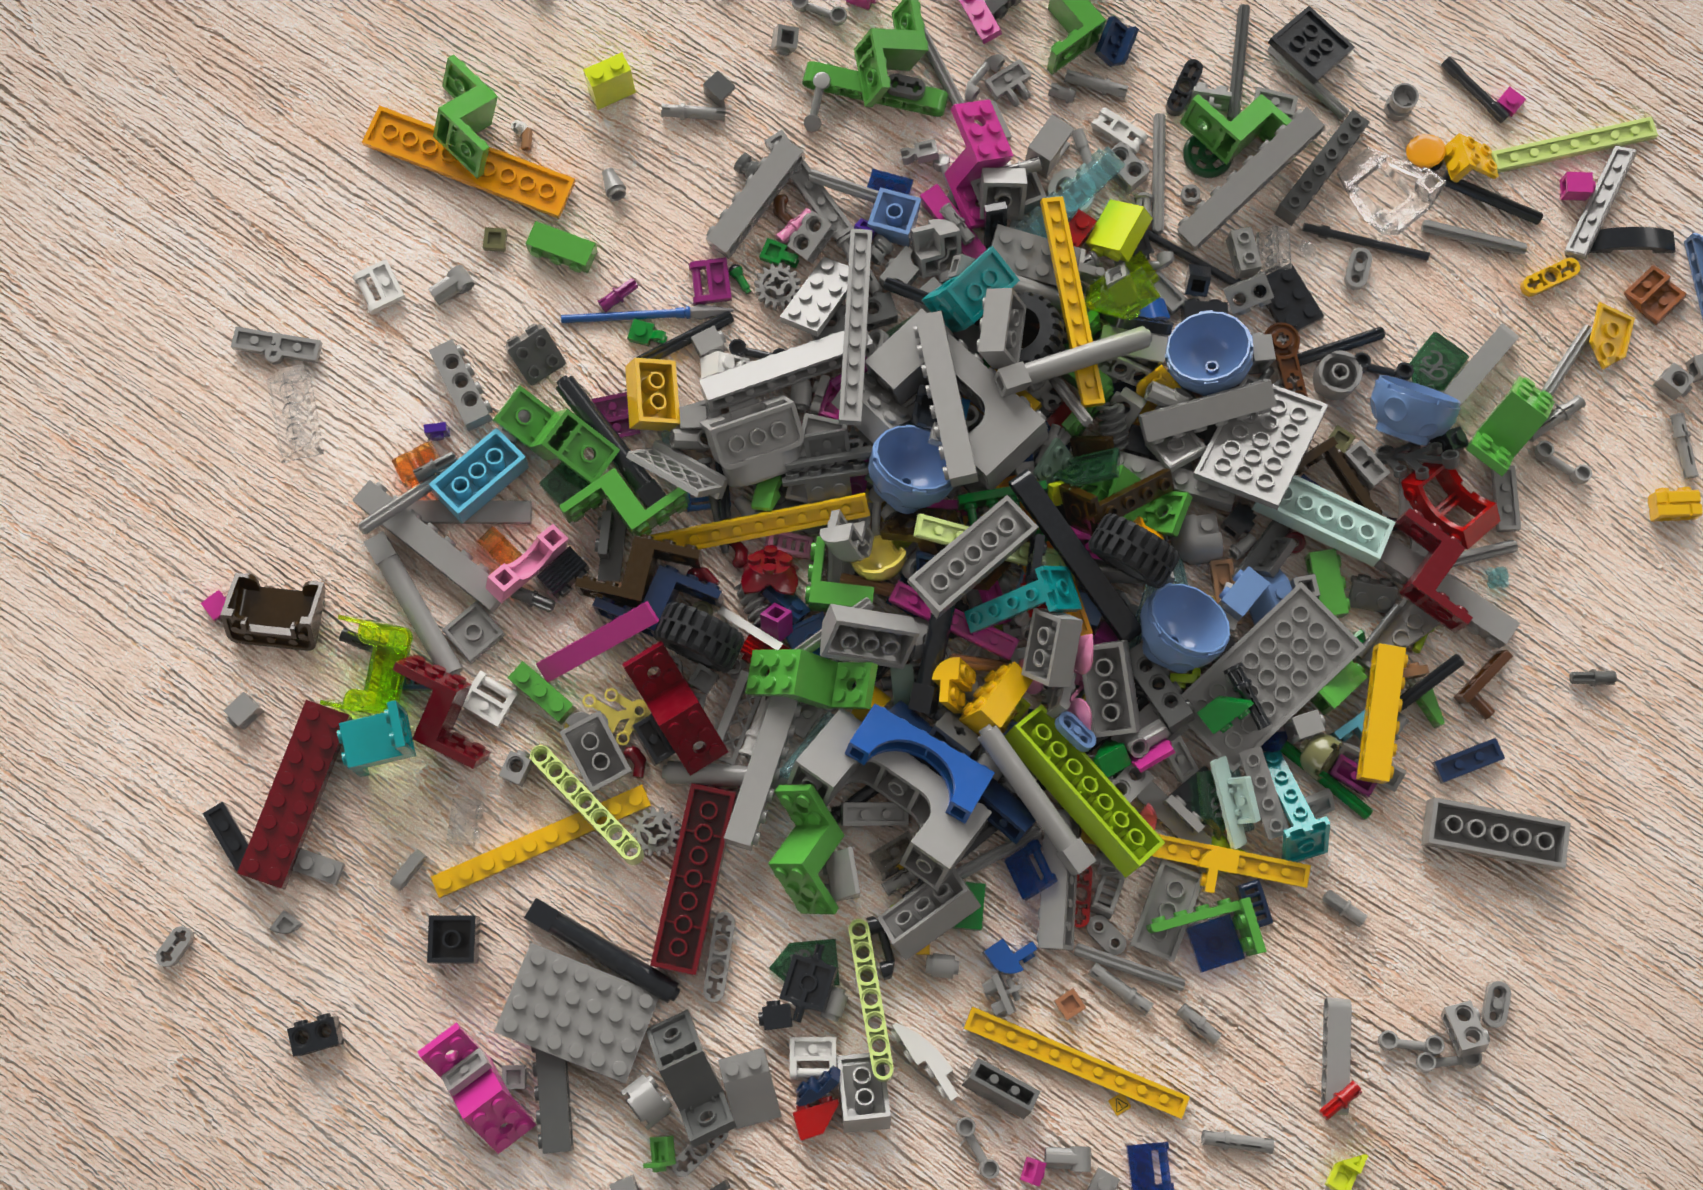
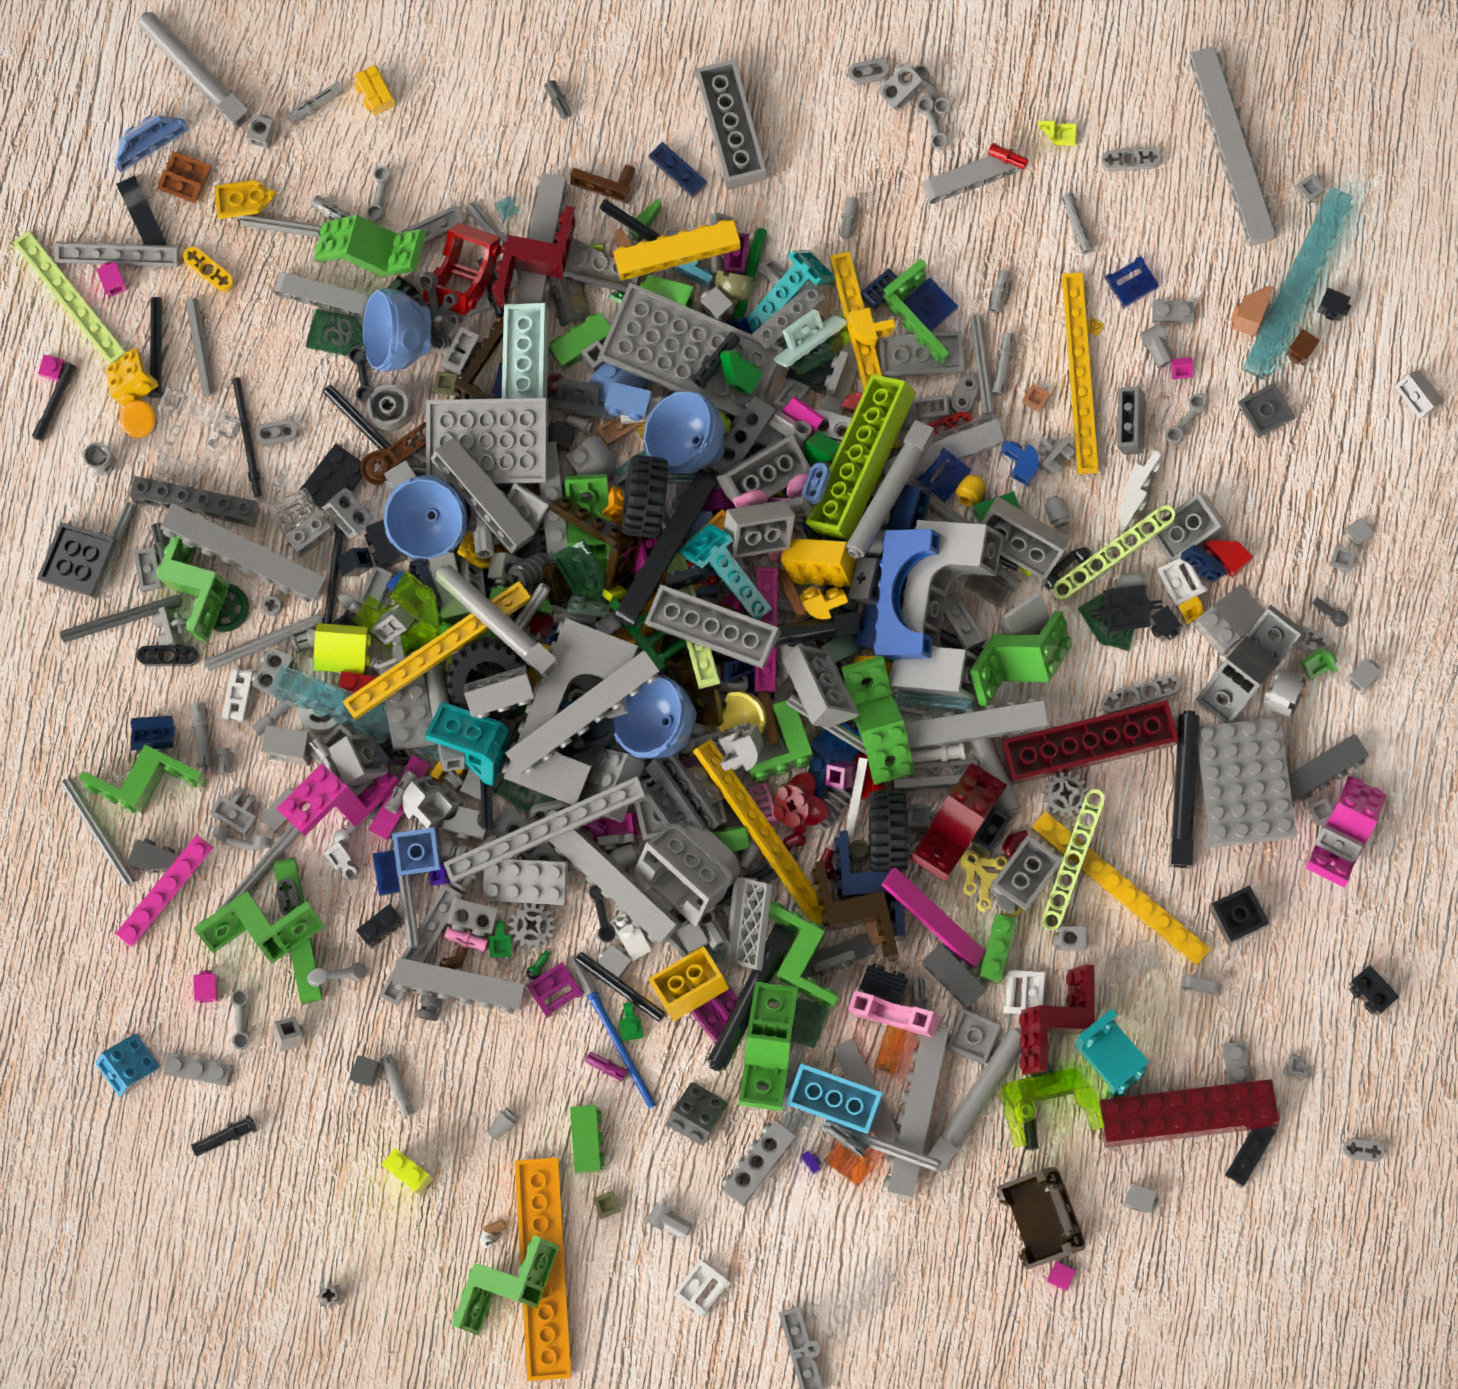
camera: 110 degrees left, 0 degrees up
(537, 640) = (954, 975): none -> dark grey brick
(778, 1050) = (1191, 610): none -> yellow plate
(843, 156) = (380, 926): none -> black brick
(1003, 890) = (971, 490): none -> yellow head

